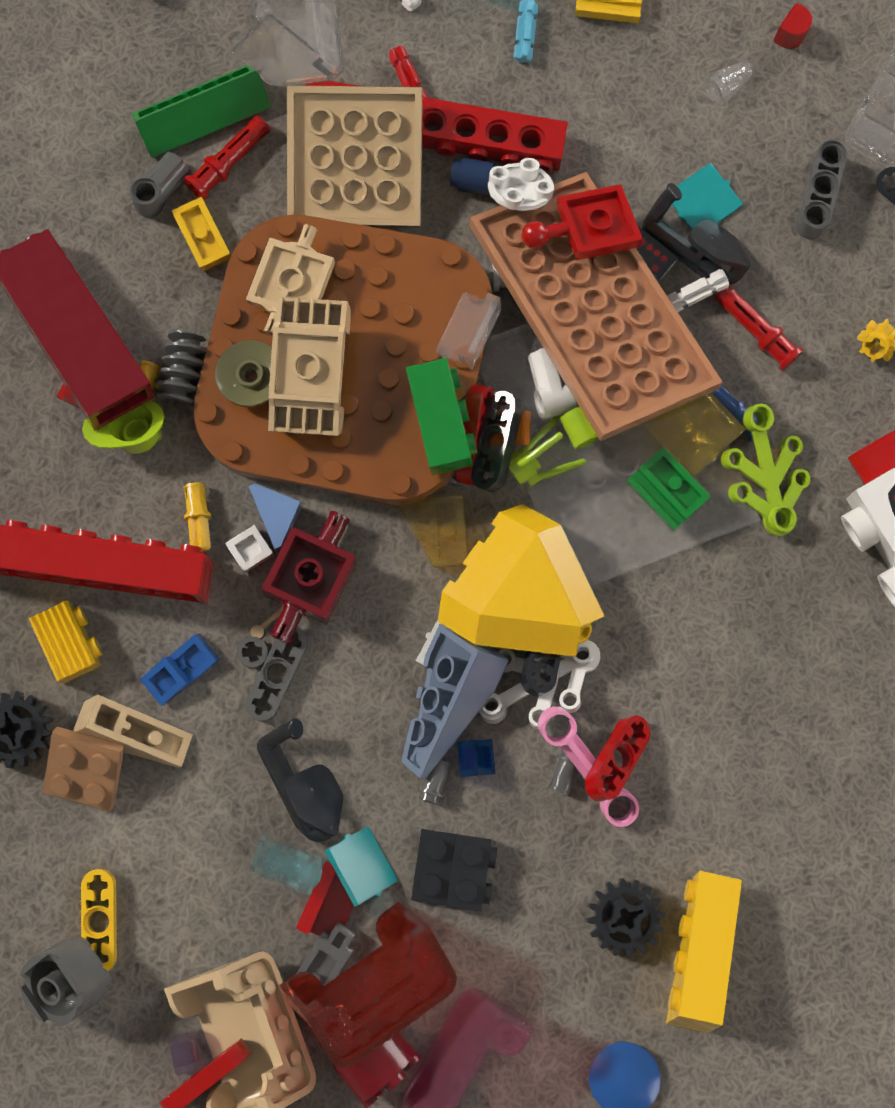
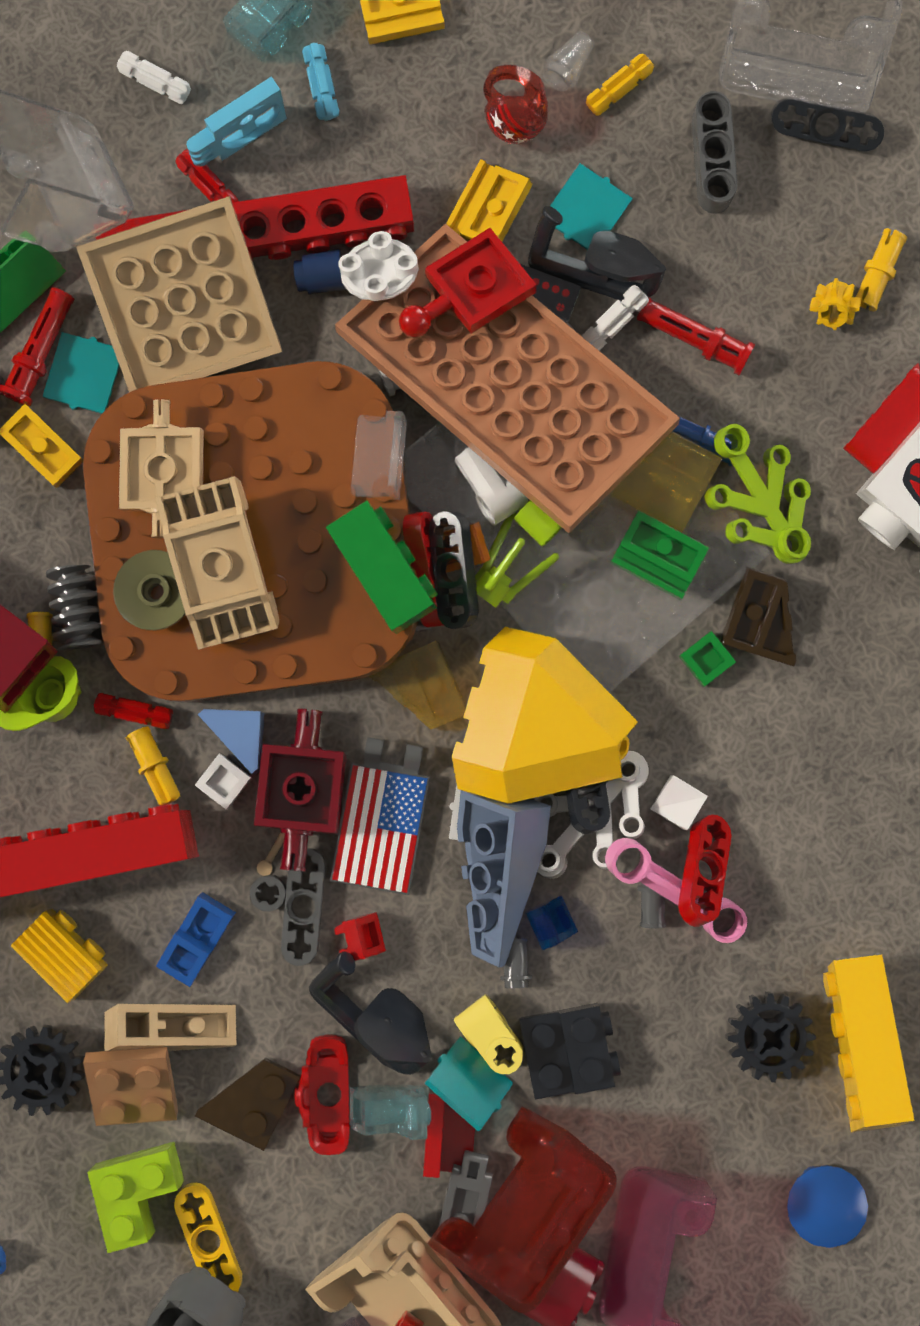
camera: 15 degrees left, 5 degrees up
(44, 851) = (122, 1192): none -> lime brick
(177, 820) = (252, 1103): none -> dark brown wing
(197, 468) = (133, 711): none -> red axle
(230, 860) = (326, 1125): none -> red piece
(255, 190) = (82, 373): none -> teal piece
(317, 713) = (362, 936): none -> red tile
(366, 626) = (381, 821): none -> tile
(392, 826) = (487, 1029): none -> light yellow piece
(440, 31) = (239, 116): none -> medium azure piece
(615, 696) = (678, 802): none -> white slope
(628, 164) = (489, 201): none -> yellow plate
(672, 107) = (515, 117): none -> clear red helmet
(678, 588) = (707, 659): none -> green plate
(734, 570) = (761, 618): none -> dark brown wing
(763, 112) = (619, 84): none -> yellow axle

